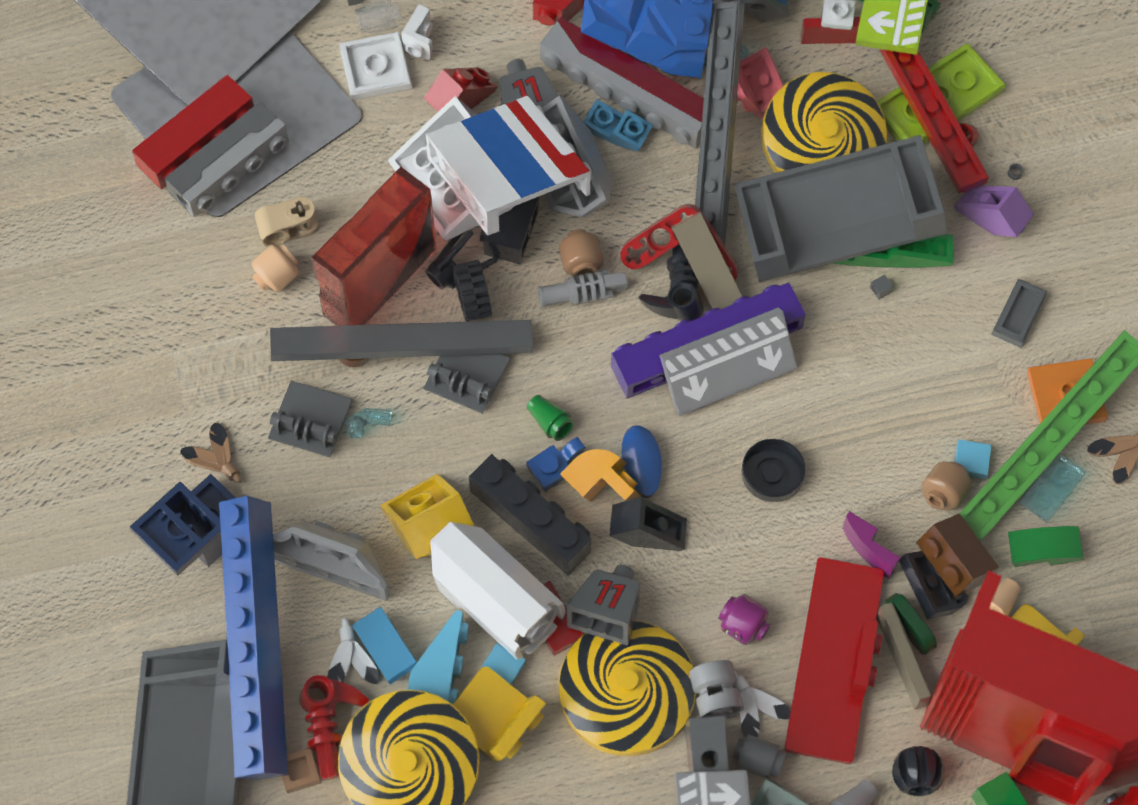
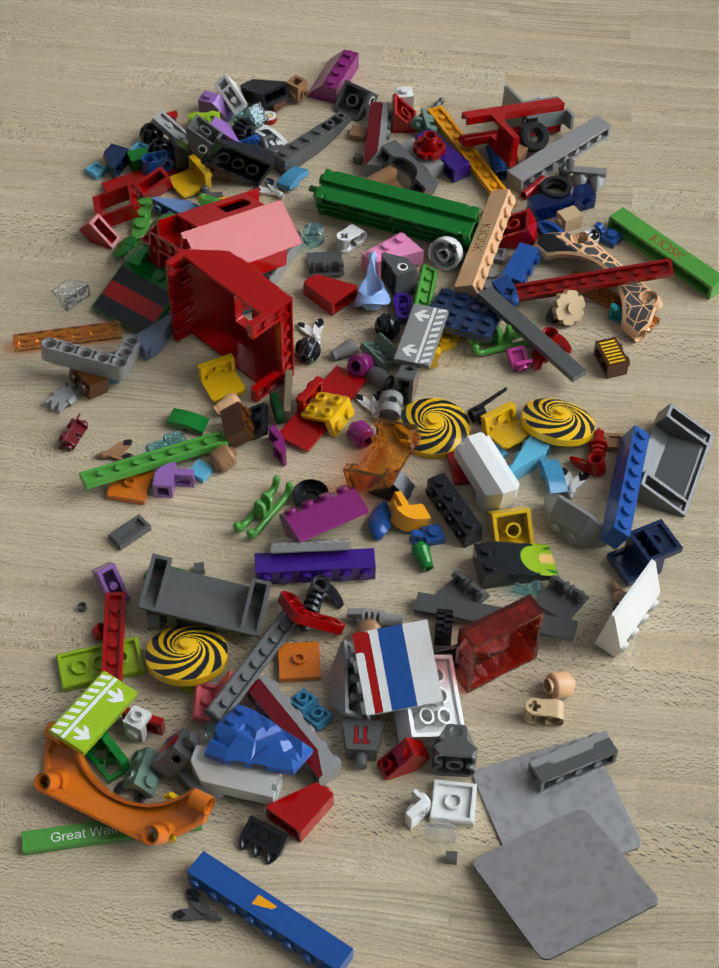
camera: 160 degrees left, 15 degrees down
(191, 129) = (589, 786): red brick -> none
(198, 403) = (630, 612): none -> white slope
(391, 108) = (454, 752): none -> dark grey piece
(401, 452) = (509, 562): none -> black slope
(555, 742) = (477, 411): none -> black plant
(606, 605) = (429, 455): dark grey torso -> none
(661, 187) = (299, 662): none -> orange plate
(678, 544) = (385, 458): none -> clear orange windscreen
(707, 261) = (298, 595): dark tan tile -> none
(730, 418) = (322, 513): none -> magenta slope
(807, 769) = (360, 364): none -> magenta head
(818, 641) = (330, 409): none -> yellow bracket
(835, 412) = (264, 509): none -> bright green piece
(1012, 416) = (170, 476): none -> medium lavender brick

